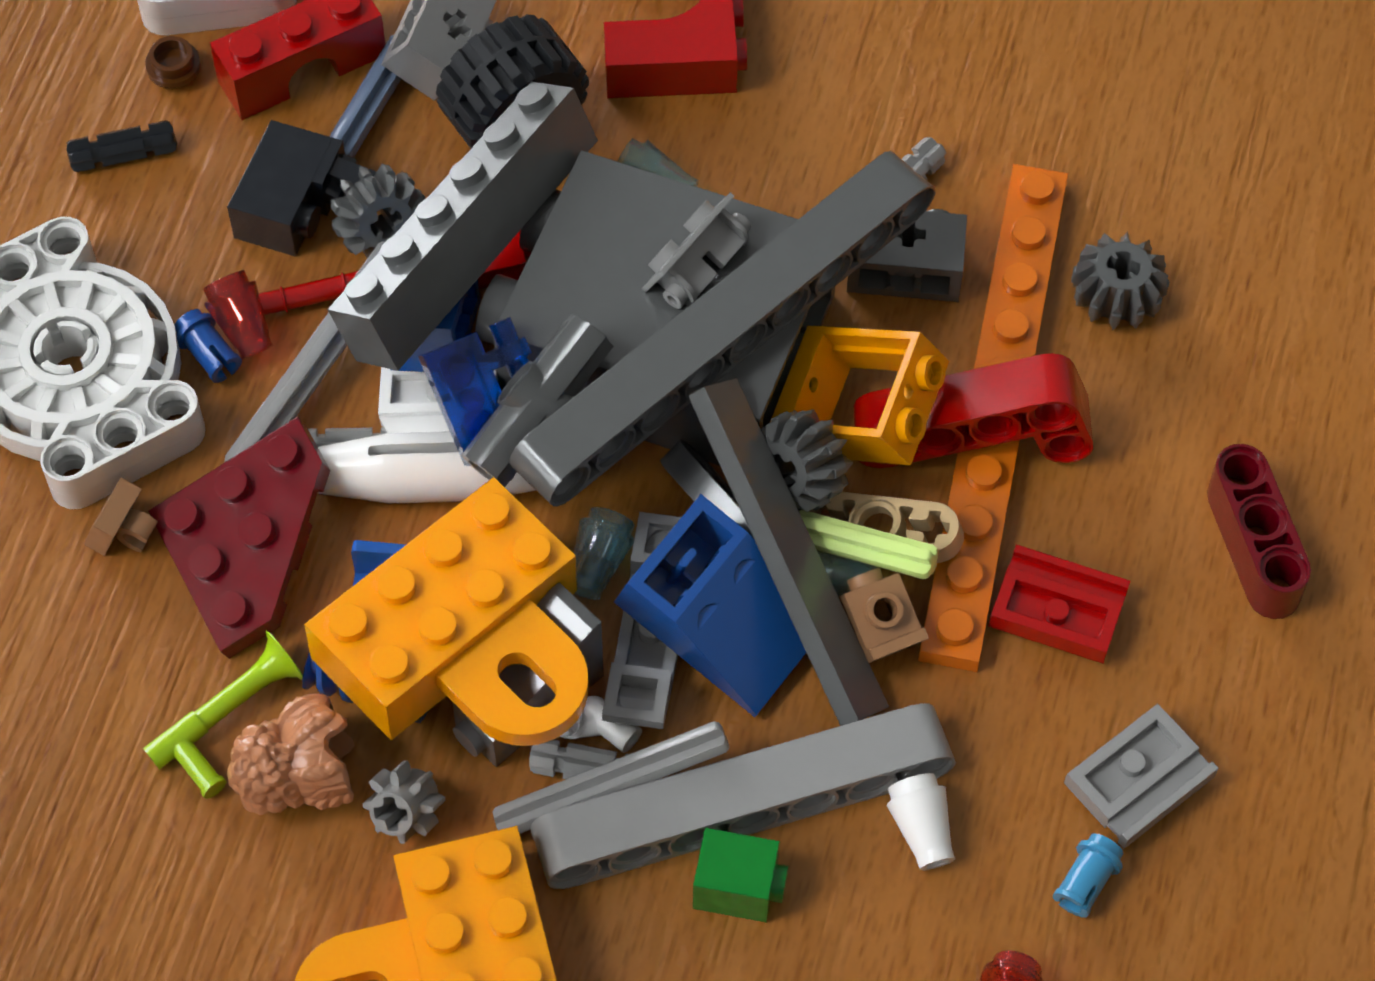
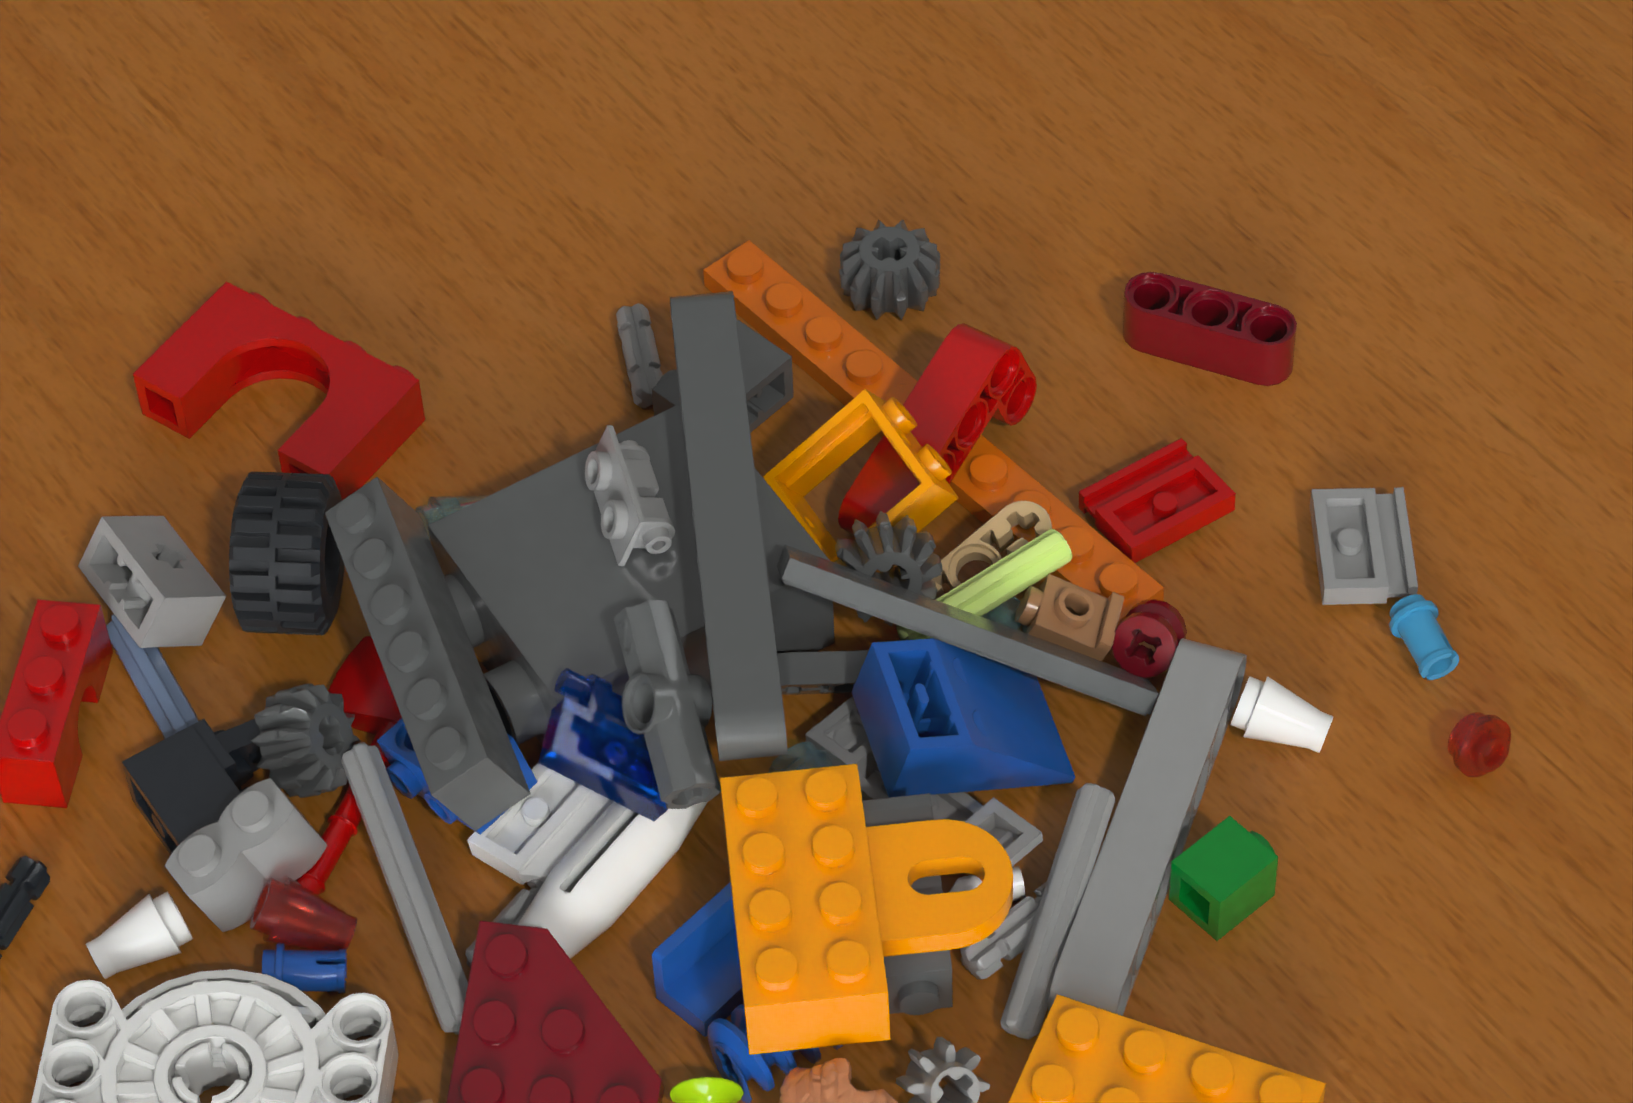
camera: 50 degrees left, 10 degrees down
(163, 233) = (141, 936): none -> white cone
(262, 239) = (232, 859): none -> light grey brick
(914, 679) = (1158, 626): none -> dark red wheel

